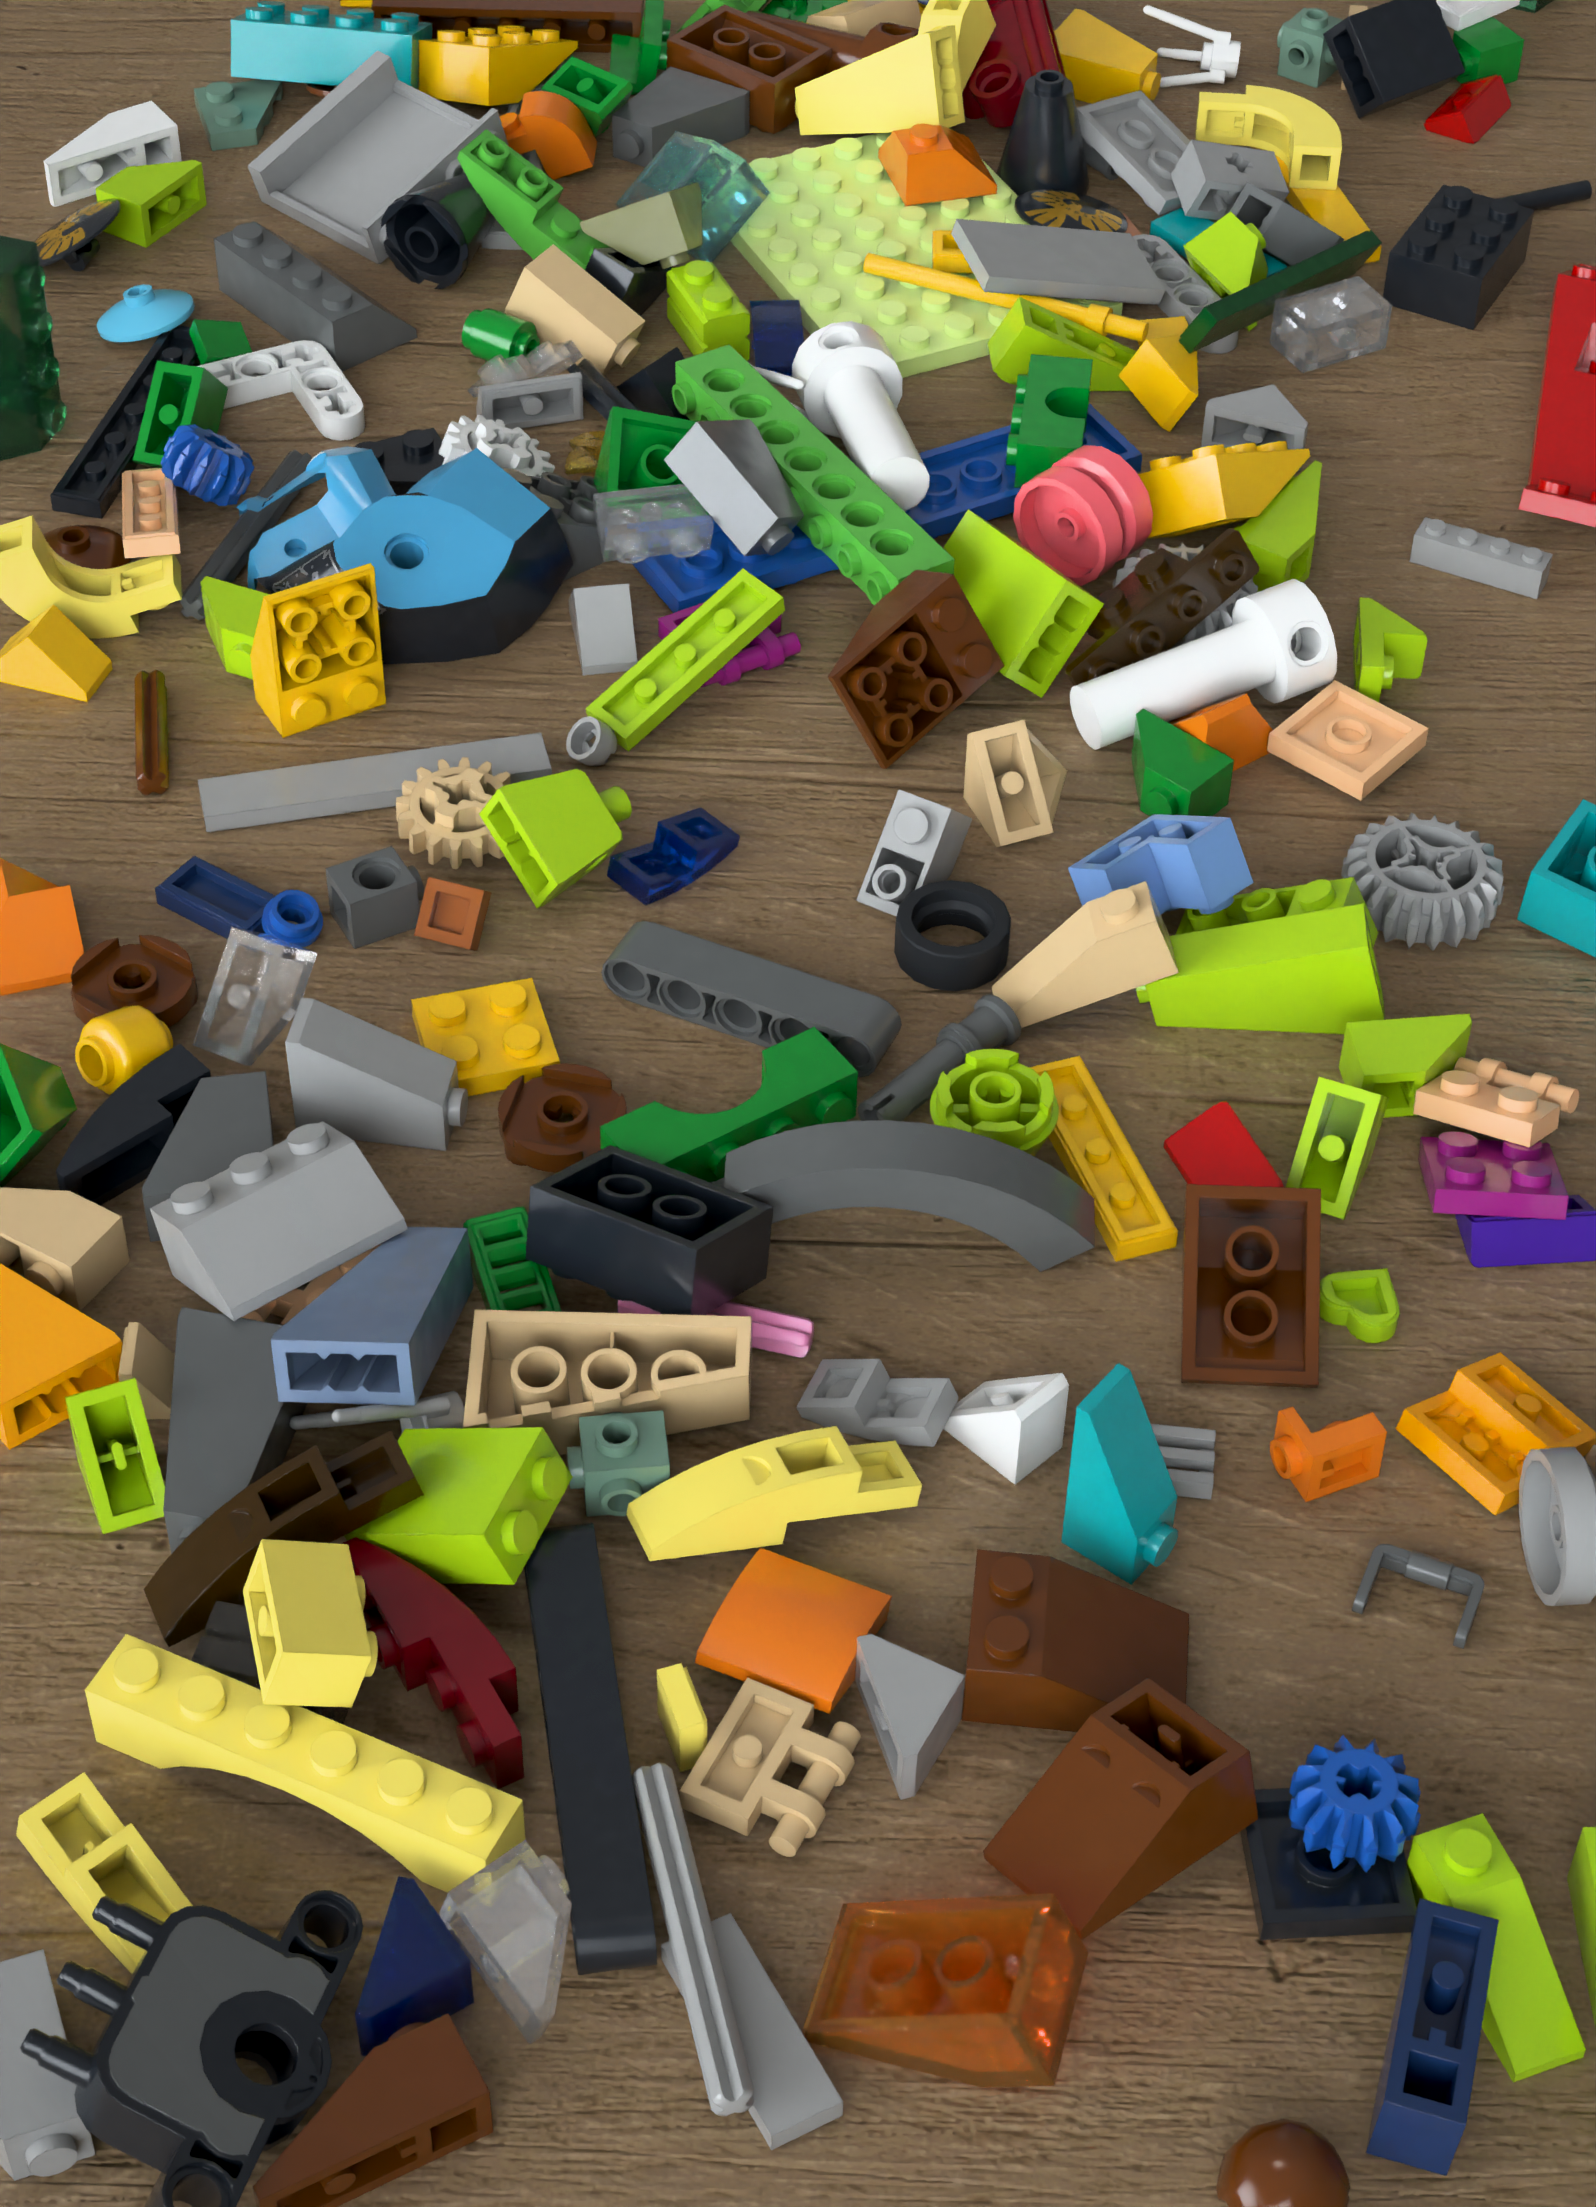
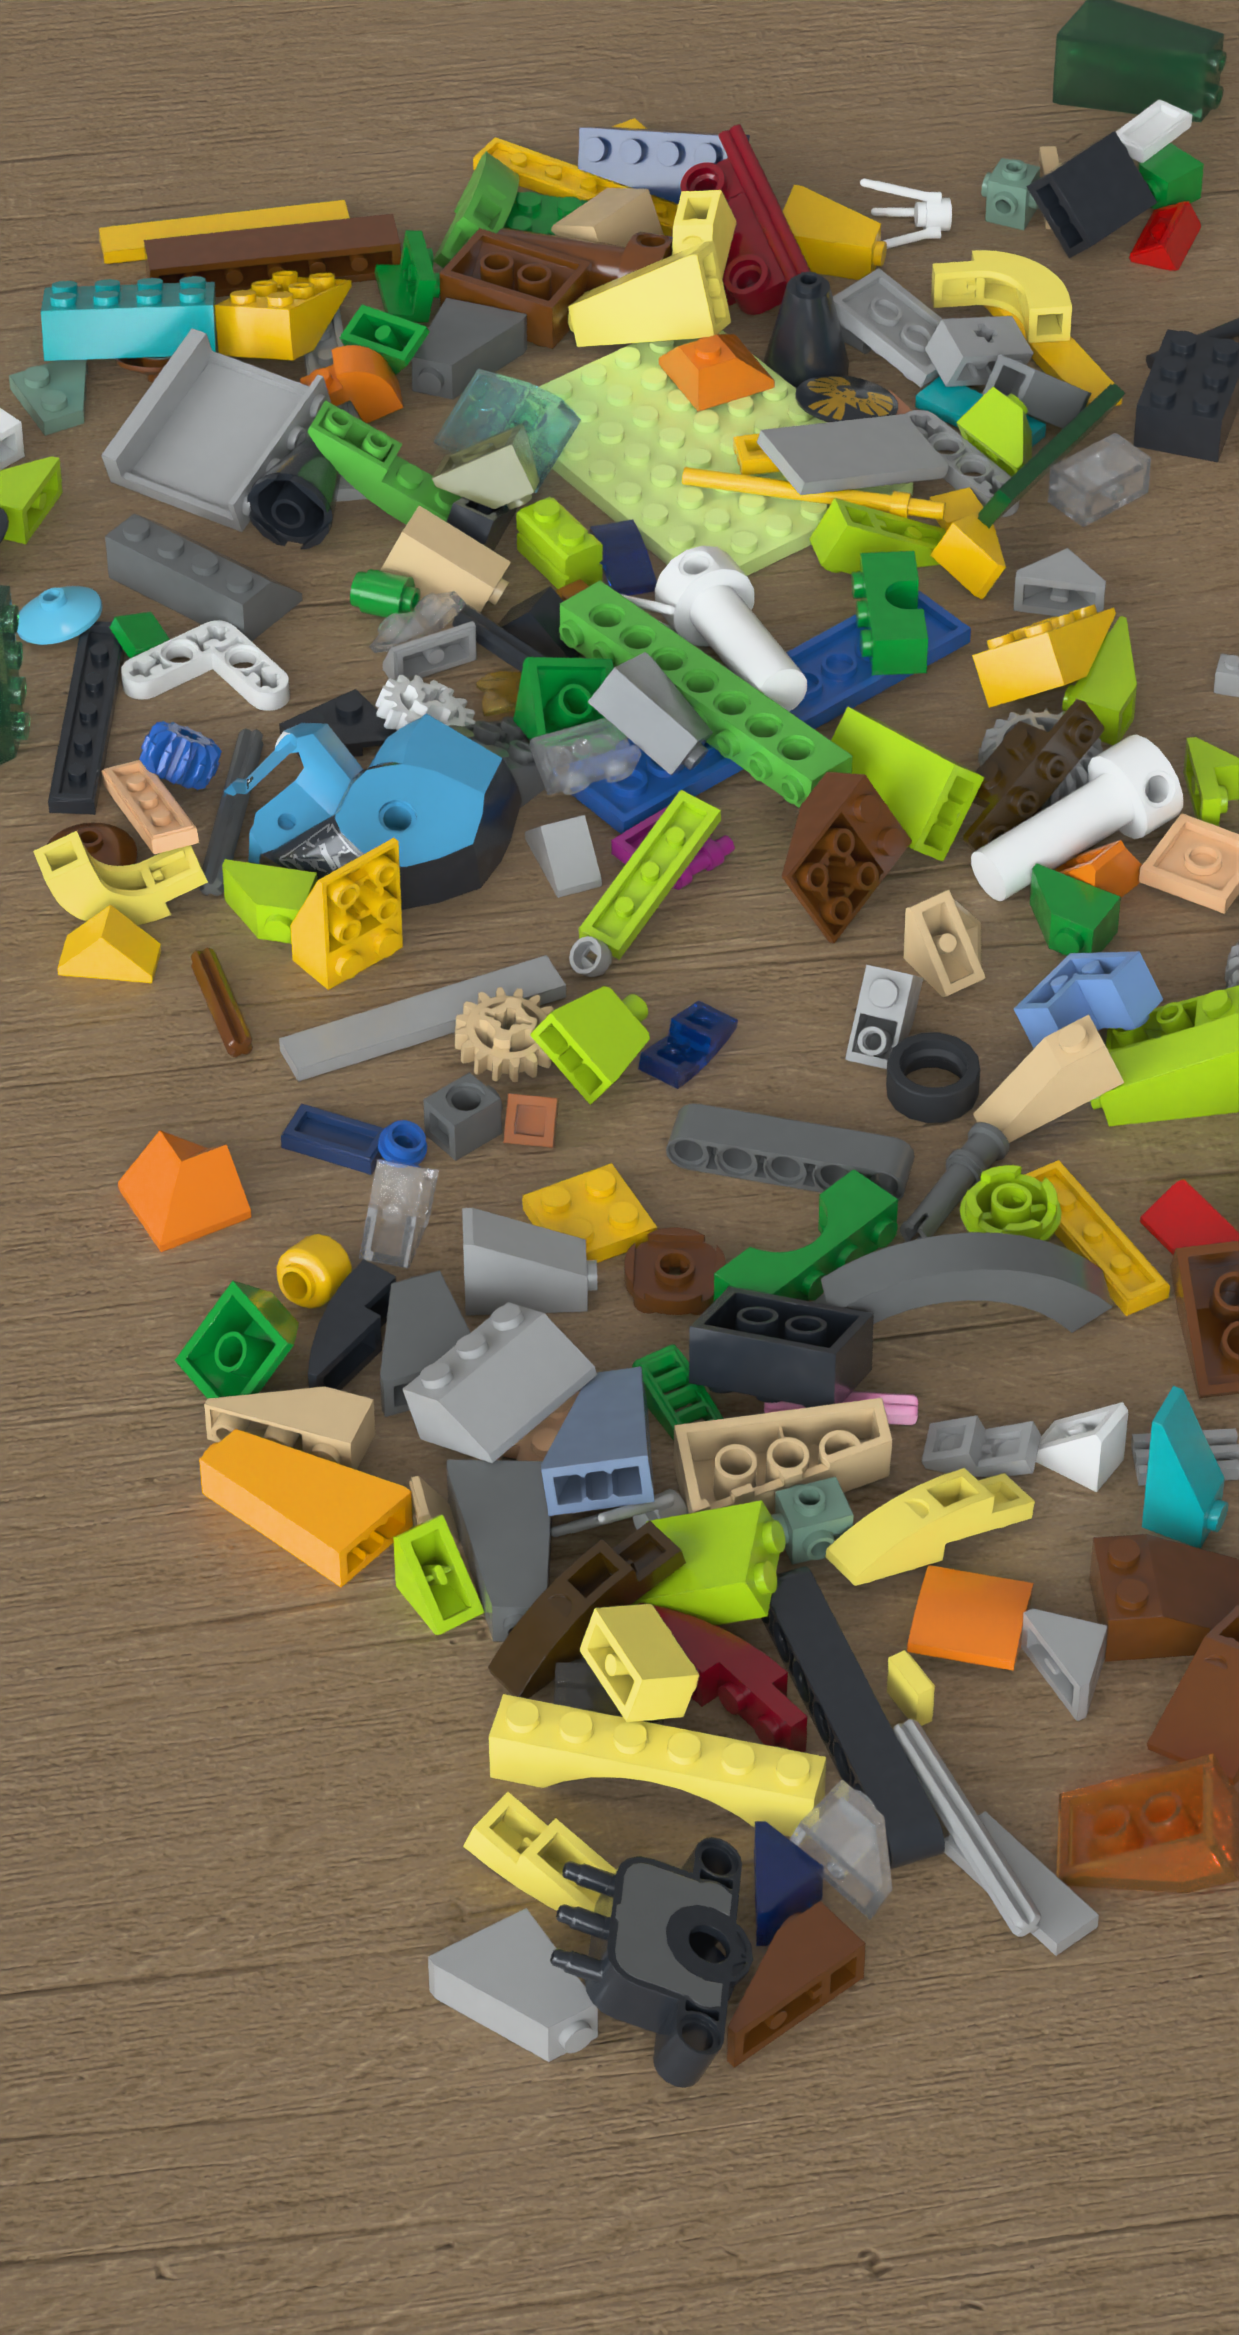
camera: 10 degrees left, 0 degrees up
(156, 961) = (303, 1195): reddish brown plate -> none
(175, 399) = (134, 706): green slope -> none
(749, 1755) = (965, 1709): tan plate -> none
(1084, 513) = (942, 694): coral wheel -> none

